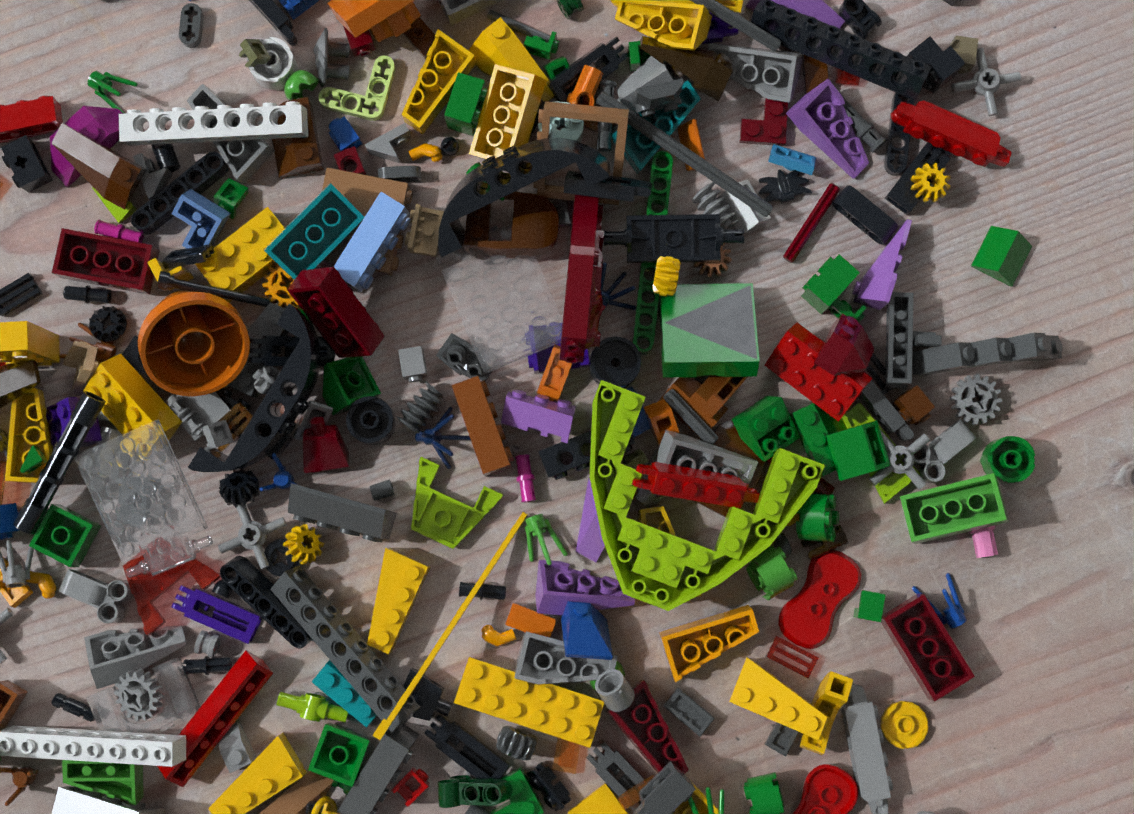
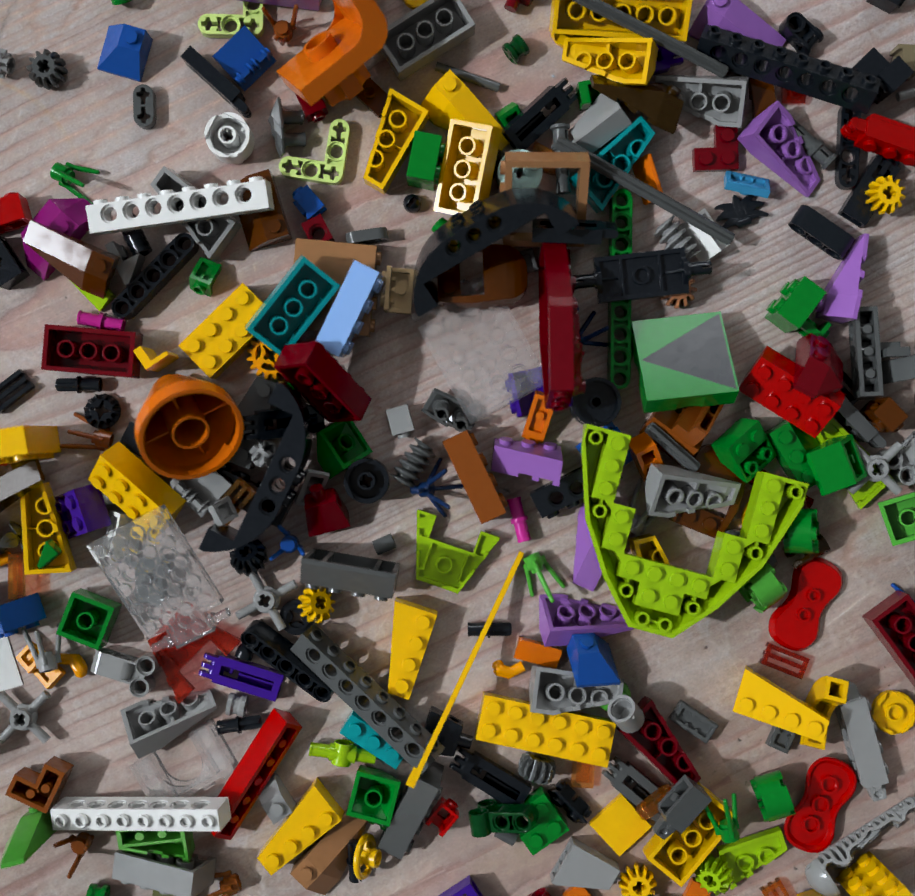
camera: 10 degrees left, 5 degrees up
(65, 450) = (74, 553): black piece -> none
(73, 706) = (117, 774): black axle -> none
(82, 358) = (84, 449): tan bracket -> none
(139, 694) = (179, 760): light grey gear -> none
(168, 281) = (155, 369): black piece -> none
(188, 256) = (172, 340): black tile -> none
(204, 217) = (183, 300): medium blue brick -> none
(254, 51) = (211, 129): olive tile -> none
(298, 82) = (257, 154): bright green hair -> none
(384, 144) = (348, 211): light grey slope -> none
(426, 150) = (390, 210): light orange arm -> none
(538, 47) = (488, 95): green bracket -> none
(586, 86) = (540, 132): orange piece -> none
(635, 458) = (624, 494): olive tile -> none
(657, 97) = (616, 136): dark grey slope -> none
(666, 276) = (639, 314): yellow gear -> none
(695, 485) = (685, 515): red hinge -> none
(705, 639) = (705, 654): light orange wedge -> none
(811, 223) = (770, 244): dark red axle -> none
(870, 606) = (856, 608): green panel -> none

